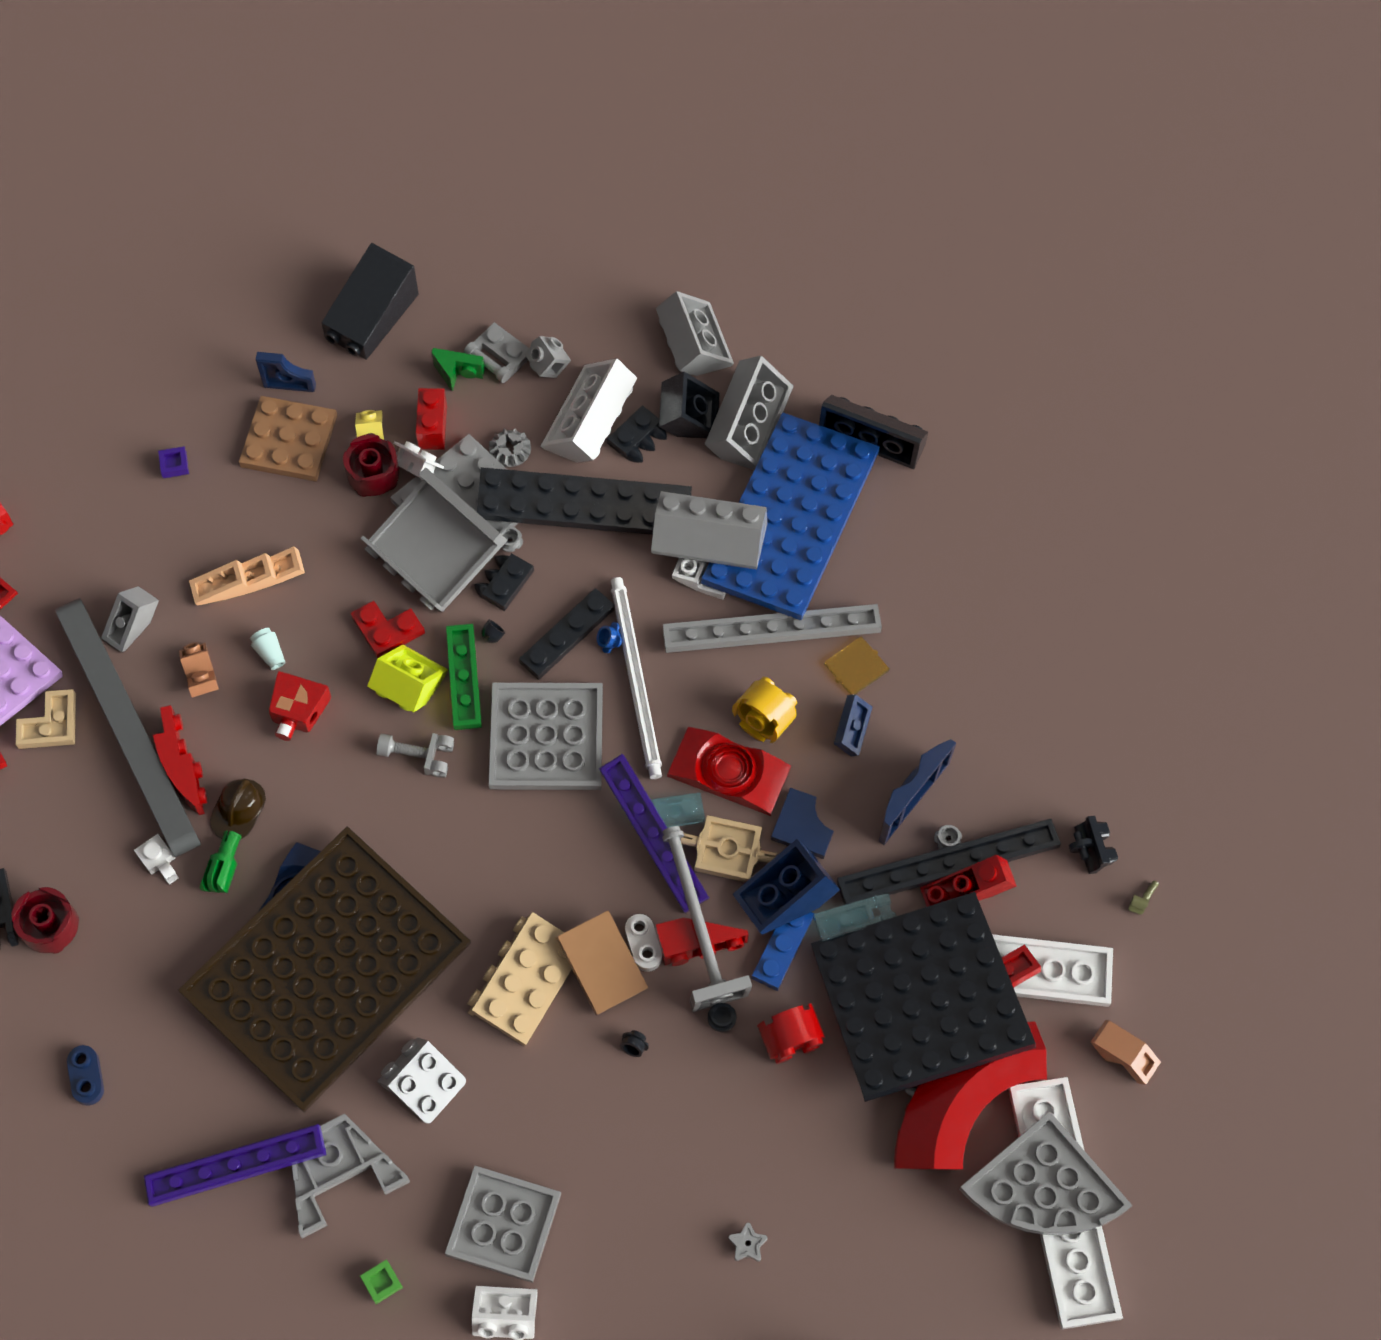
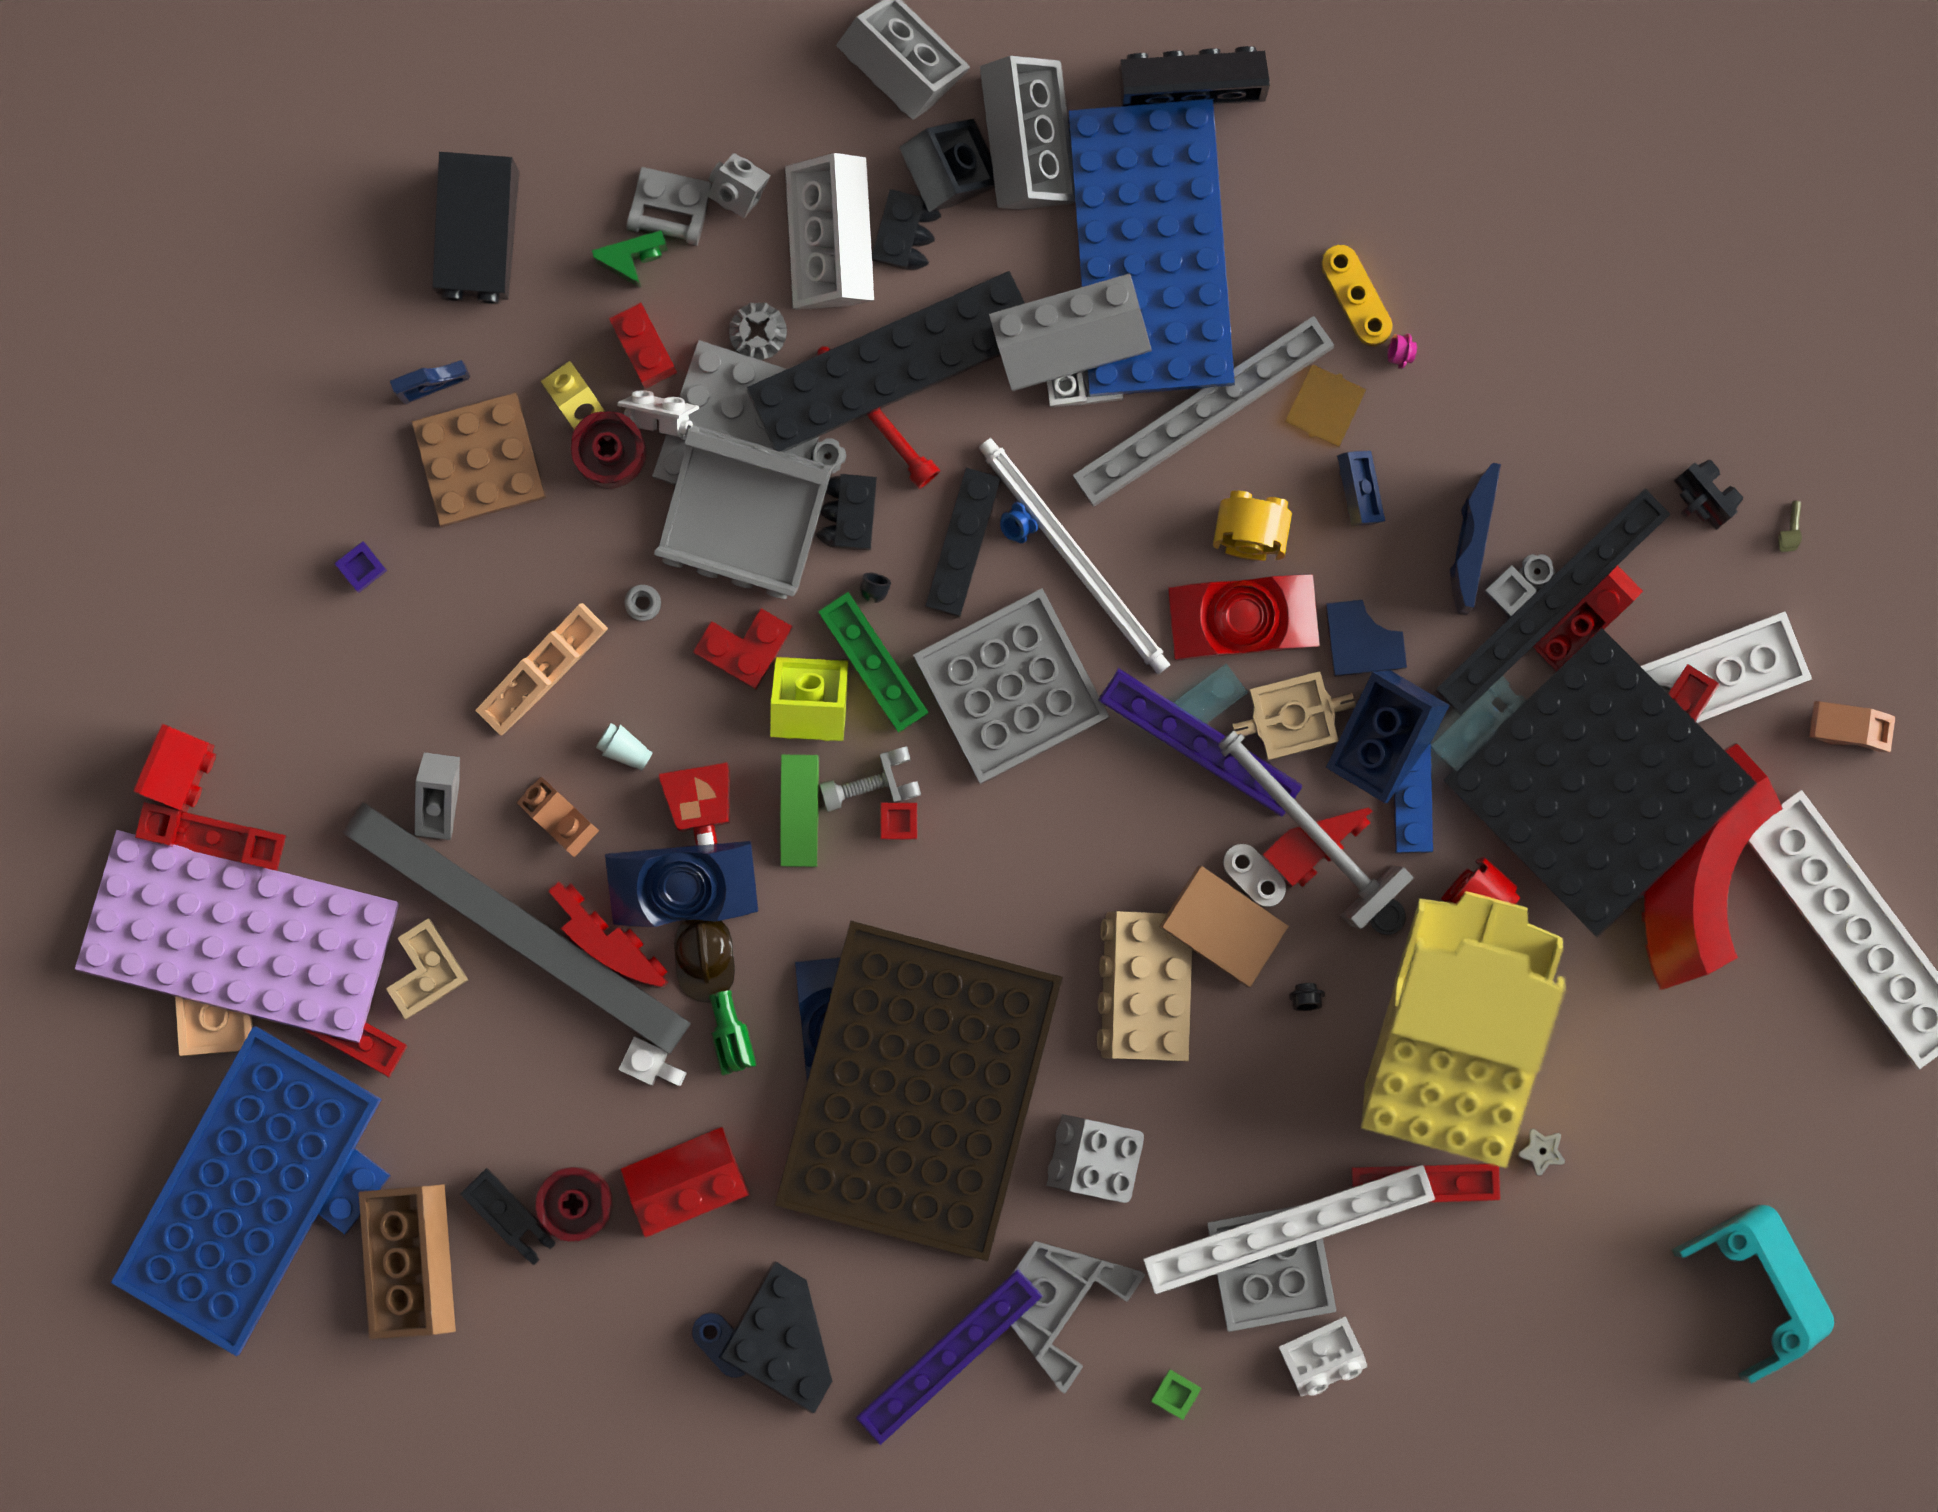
camera: 20 degrees left, 20 degrees up
(125, 1091) = (781, 1340): none -> black plate
(128, 949) = (684, 1182): none -> red slope
(252, 750) = (682, 884): none -> dark blue slope
(337, 562) = (642, 591): none -> light grey plate
(358, 742) = (799, 810): none -> bright green slope
(420, 784) = (898, 821): none -> red plate
(529, 1197) = (1289, 1229): none -> white plate
(565, 576) = (920, 468): none -> red piece
(649, 1221) = (1447, 1182): none -> red plate
(730, 1106) = (1464, 1028): none -> light yellow piece
(910, 617) = (1357, 311): none -> yellow plate
(922, 840) = (1510, 591): none -> light grey plate
(926, 654) = (1401, 350): none -> dark pink plate
(1046, 1184) = (1834, 926): light grey plate -> none

